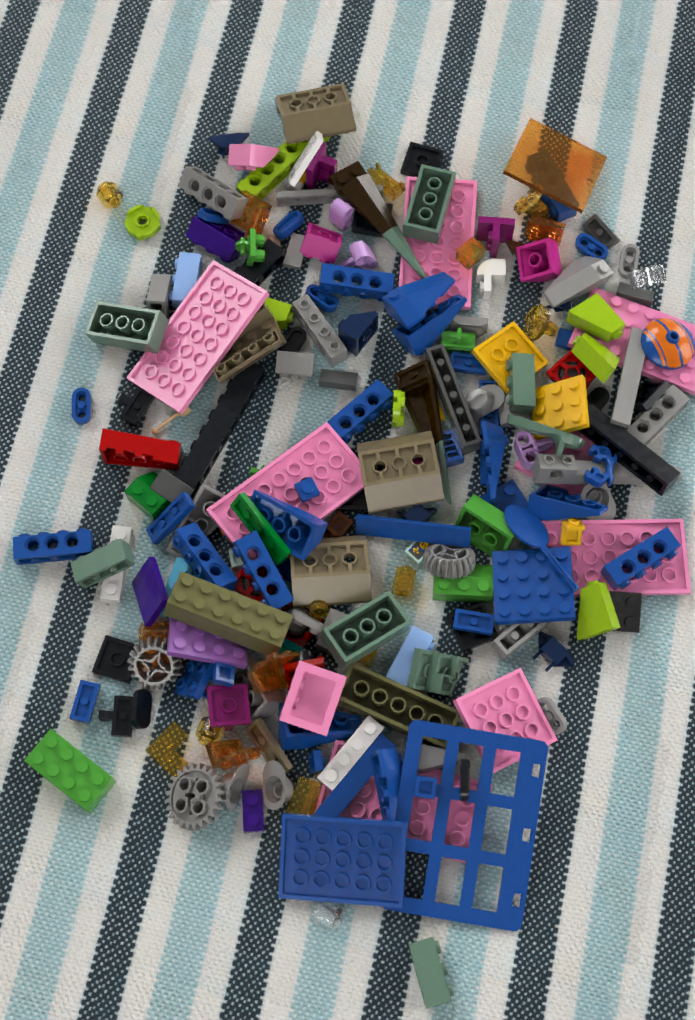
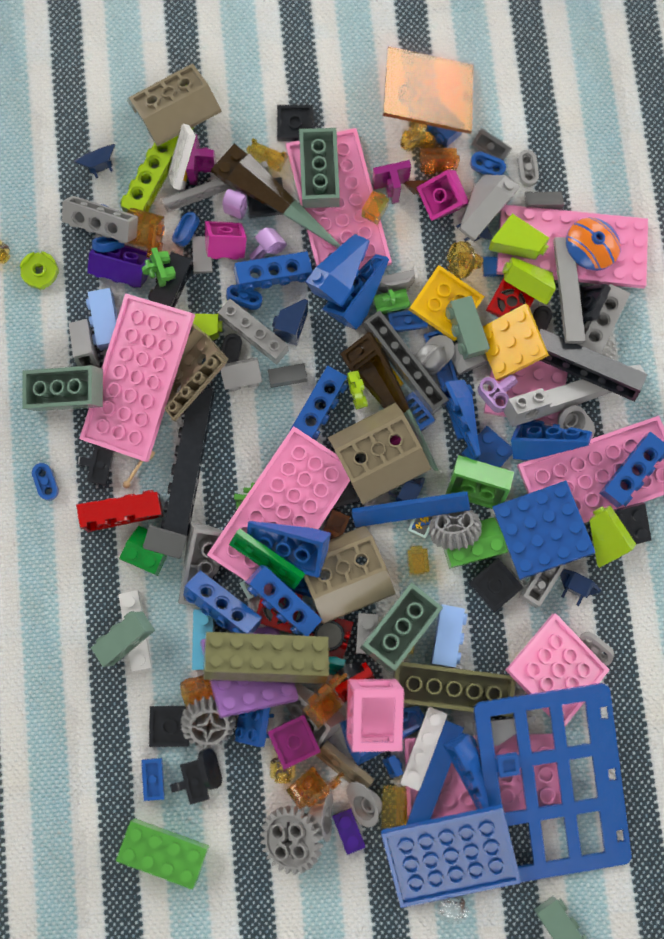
camera: 20 degrees left, 10 degrees up
(23, 543) = (98, 627): blue brick -> none
(150, 591) = (179, 653): dark purple tile -> none
(164, 748) = (244, 799): clear yellow tile -> none
(170, 518) = (173, 571): blue plate -> none
(223, 674) = (279, 715): blue plate -> none
(250, 156) = (124, 169): bright pink slope -> none
(301, 618) = (346, 636): light grey plate -> none
(306, 489) = (297, 503): blue plate -> none
(318, 609) = (347, 618): clear yellow tile -> none
(435, 671) = (476, 641): sand green slope -> none
(464, 780) = (542, 746): black tile -> none
(473, 621) = (497, 582): blue plate -> none
(490, 272) = (399, 220): white brick -> none
(531, 531) = (527, 478): blue piece -> none
(559, 438) = (525, 376): sand green animal -> none
(571, 532) = (563, 465): yellow bracket -> none
(595, 477) = (568, 403): blue helmet -> none
(647, 276) = (550, 178): clear slope -> none

